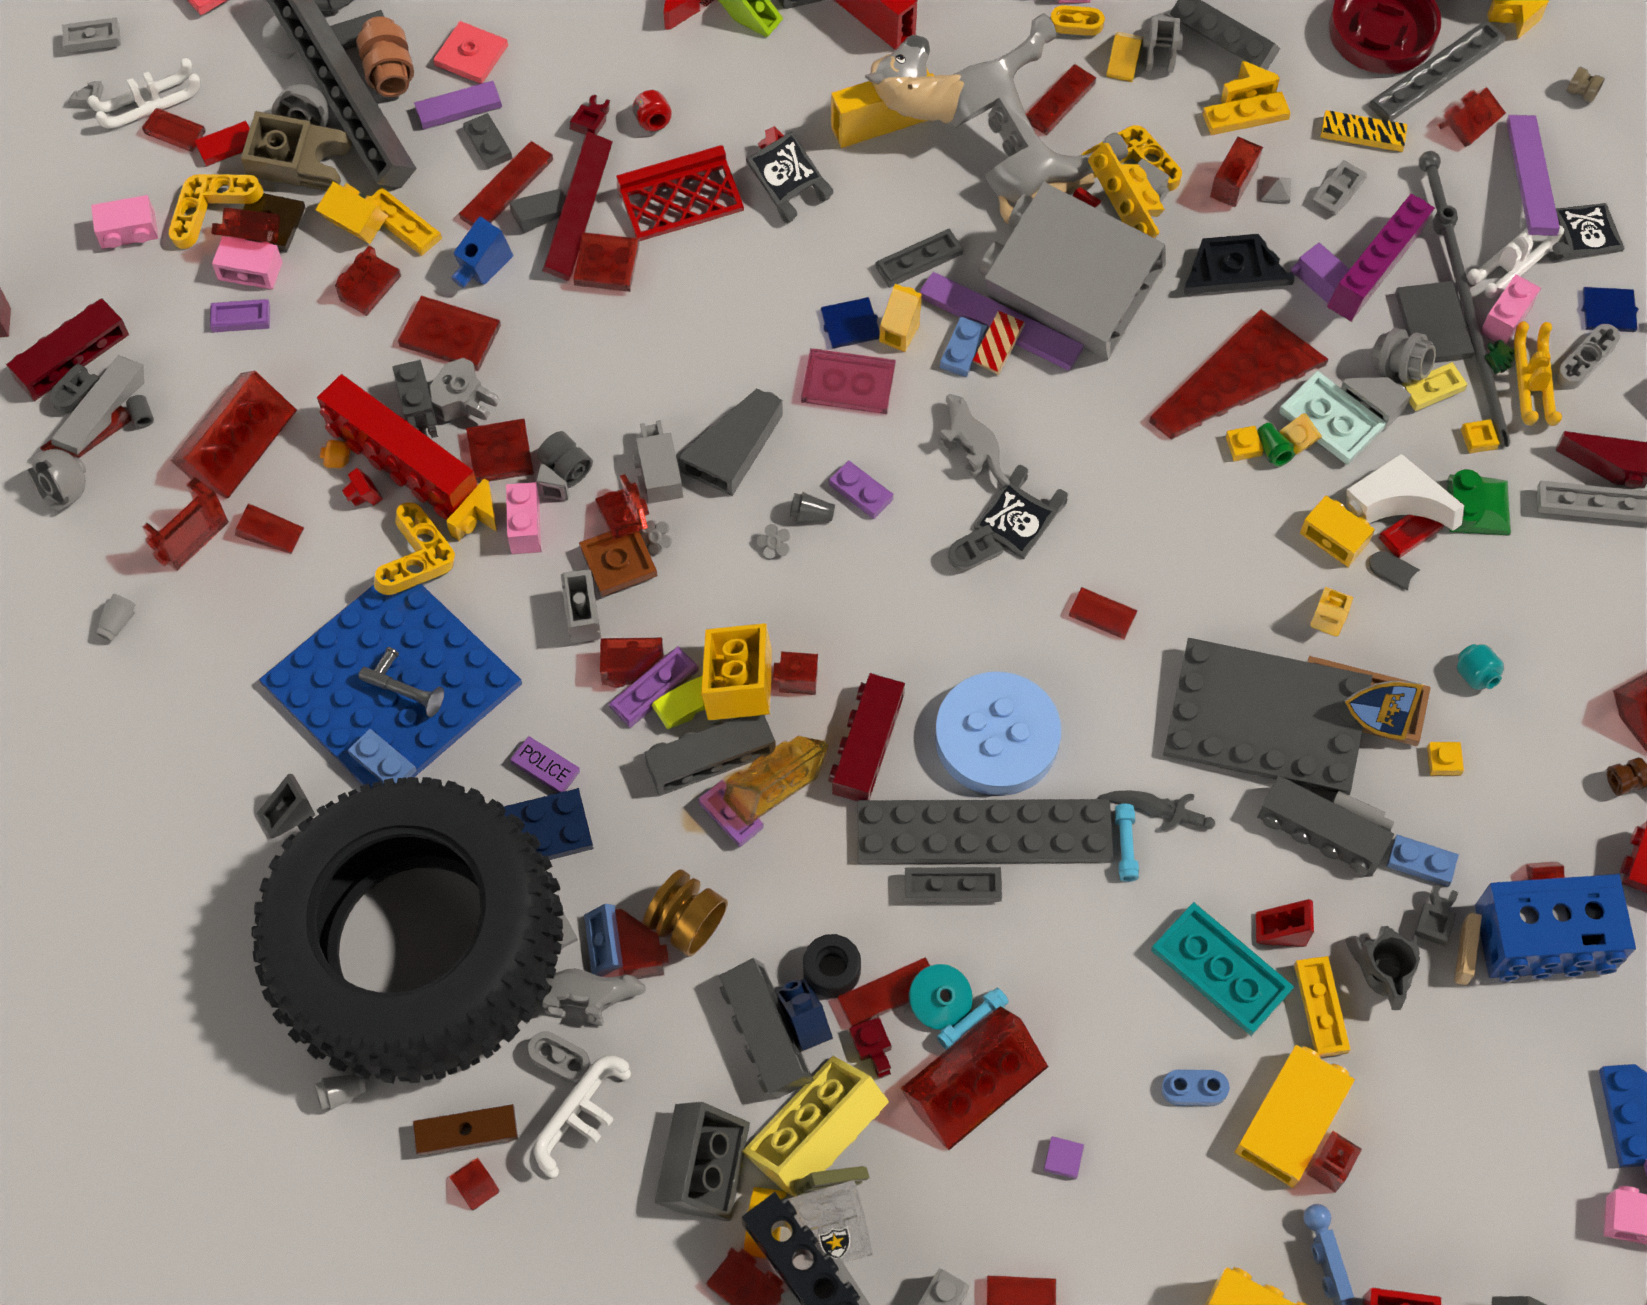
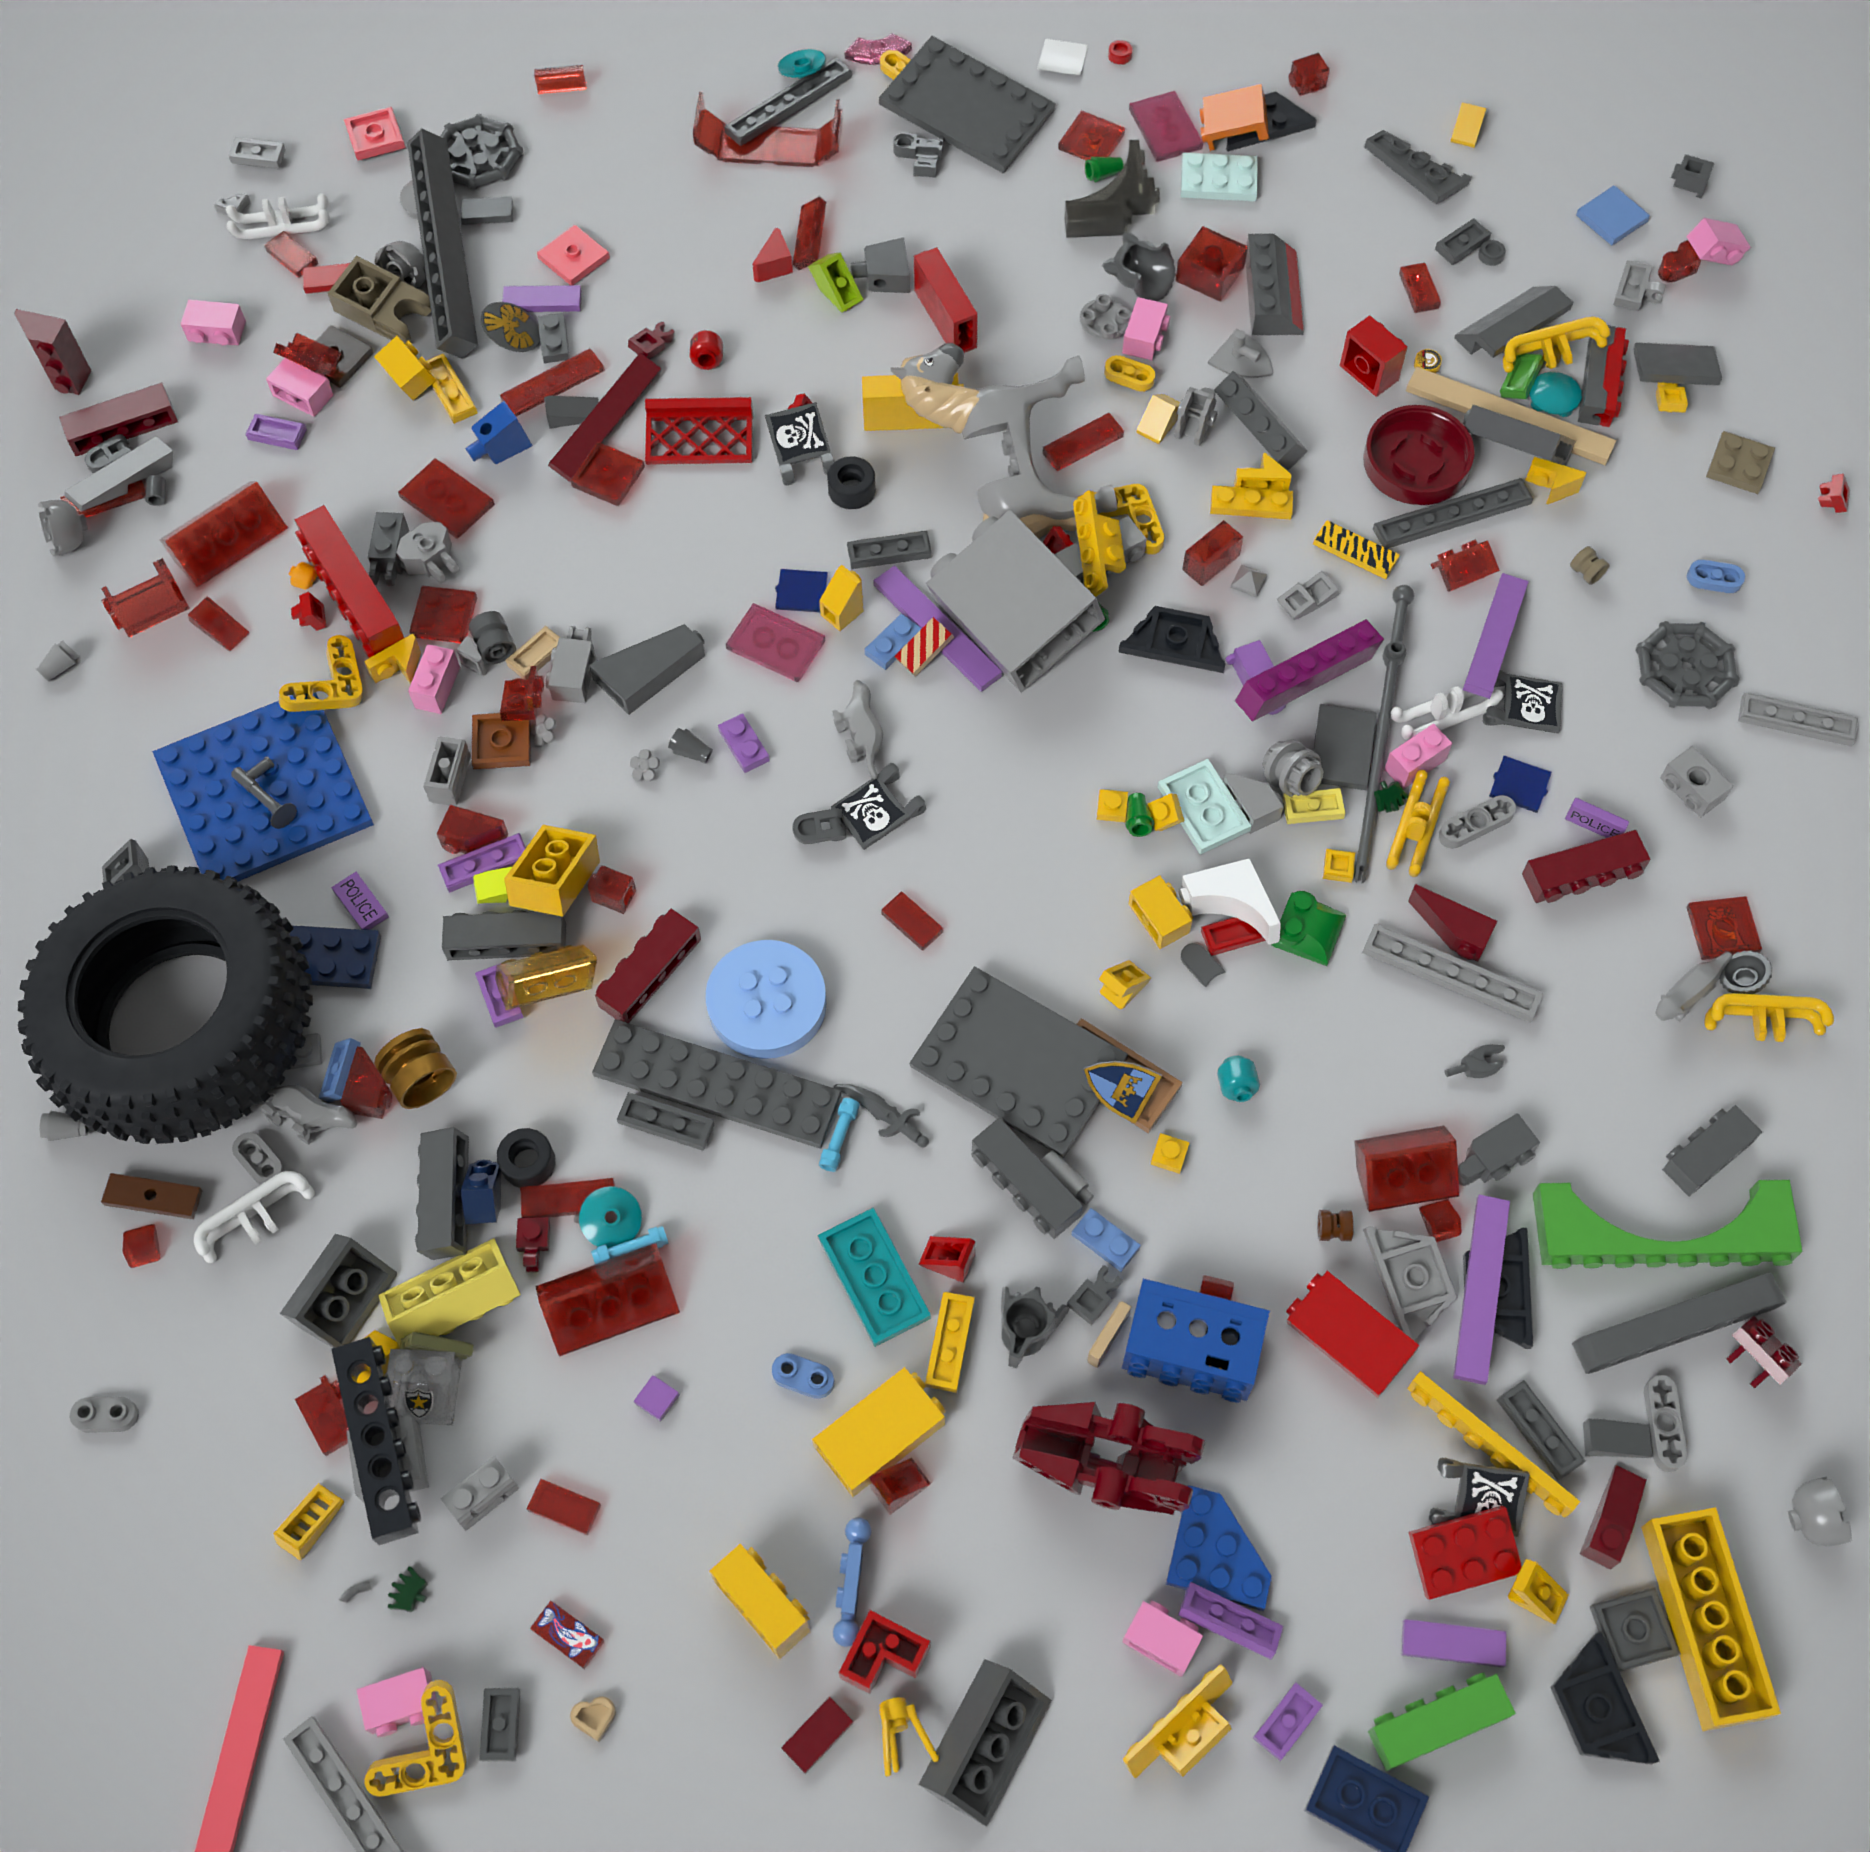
camera: 20 degrees right, 0 degrees up
(203, 196) = (289, 314): yellow beam -> none
(366, 281) = (394, 431): clear red bracket -> none
(380, 758) = (219, 851): medium blue plate -> none
(385, 56) = (493, 238): nougat piece -> none
(441, 141) = (510, 326): none -> shield
(611, 462) = (533, 653): none -> tan tile
(855, 216) = (851, 469): none -> black tyre
(1242, 370) = (1139, 739): clear red wing -> none
(1474, 1071) = (1059, 1445): none -> dark red piece

